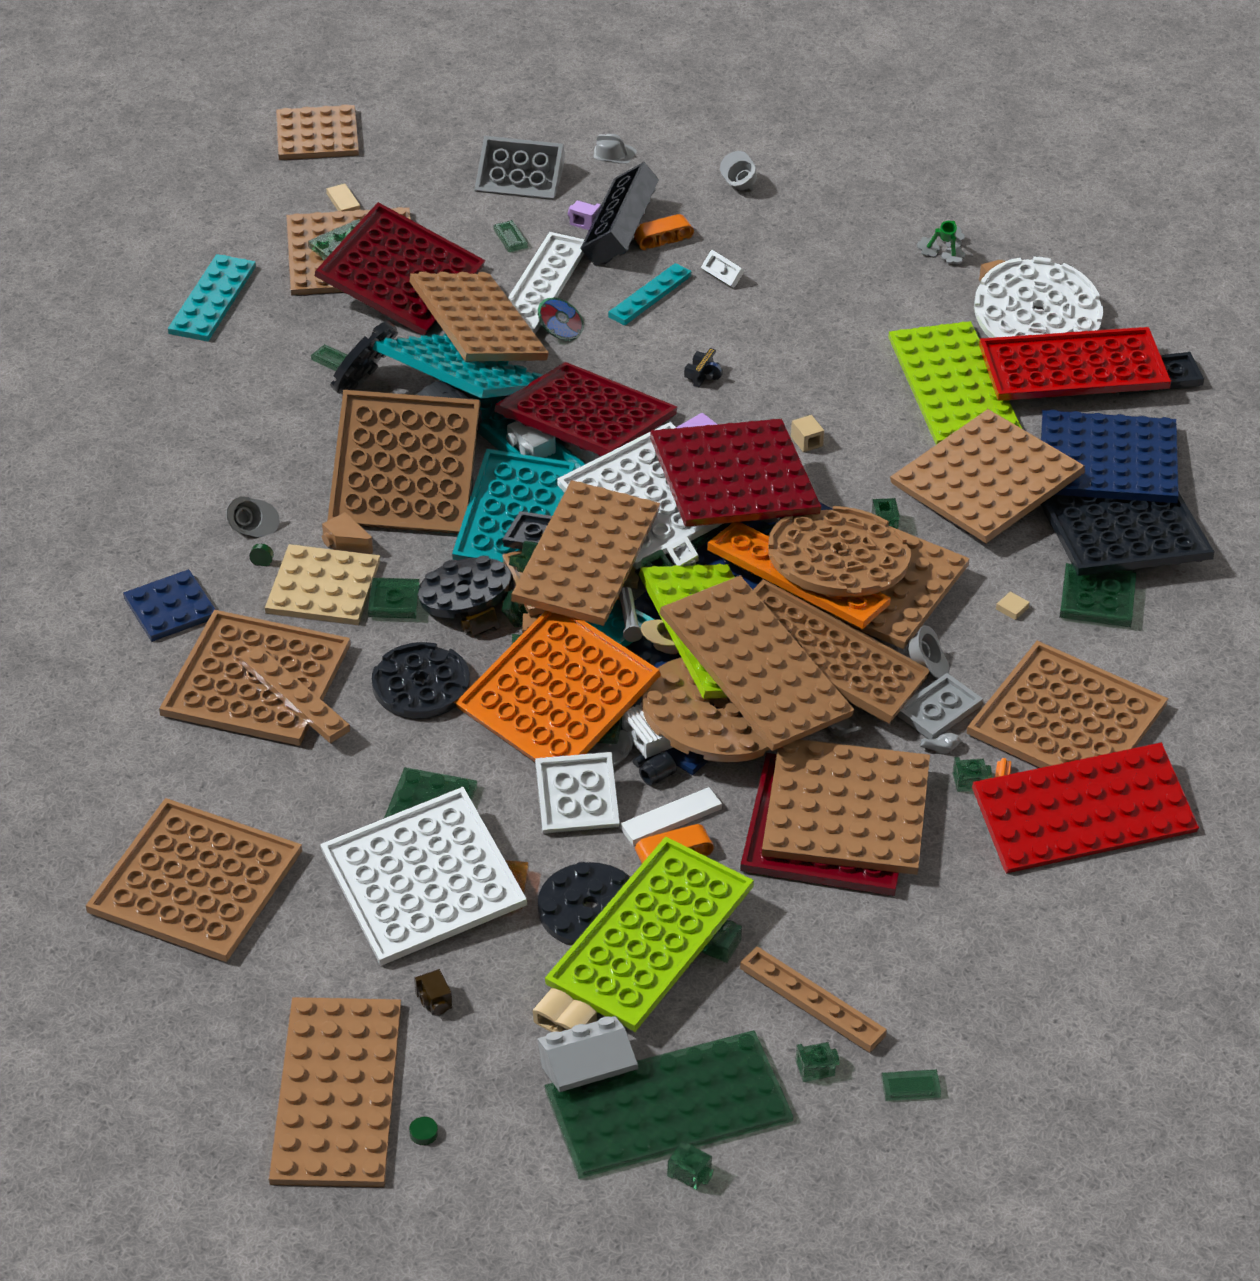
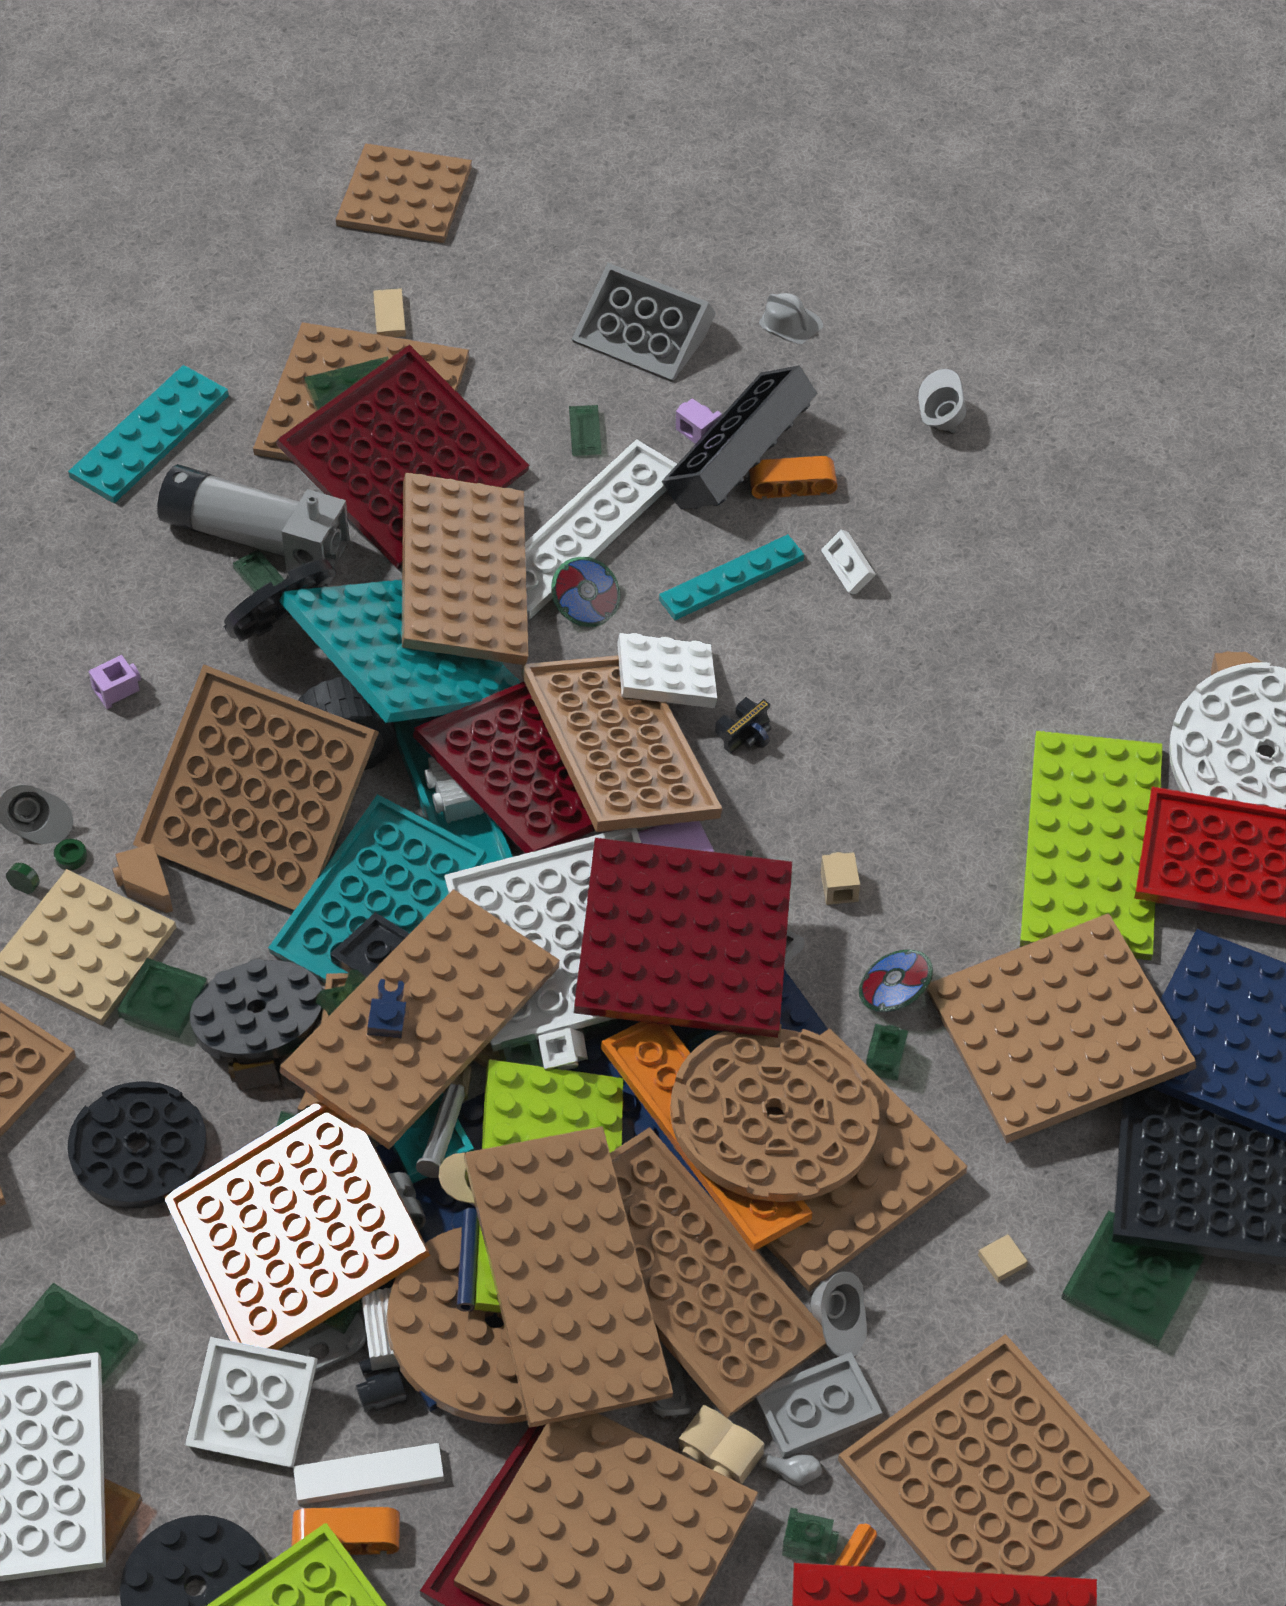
camera: 20 degrees right, 10 degrees up
(265, 434) = (114, 680): none -> lavender brick
(285, 536) = (70, 854): none -> dark green tile
(314, 322) = (286, 527): none -> light grey piece
(567, 549) = (387, 1012): none -> dark blue plate
(633, 385) = (619, 750): none -> medium nougat plate
(638, 346) = (666, 670): none -> white plate
(686, 673) = (468, 1261): none -> dark blue piece
(871, 477) = (896, 980): none -> shield
(891, 737) = (721, 1445): none -> tan brick
(951, 236) = (1186, 589): plant -> none

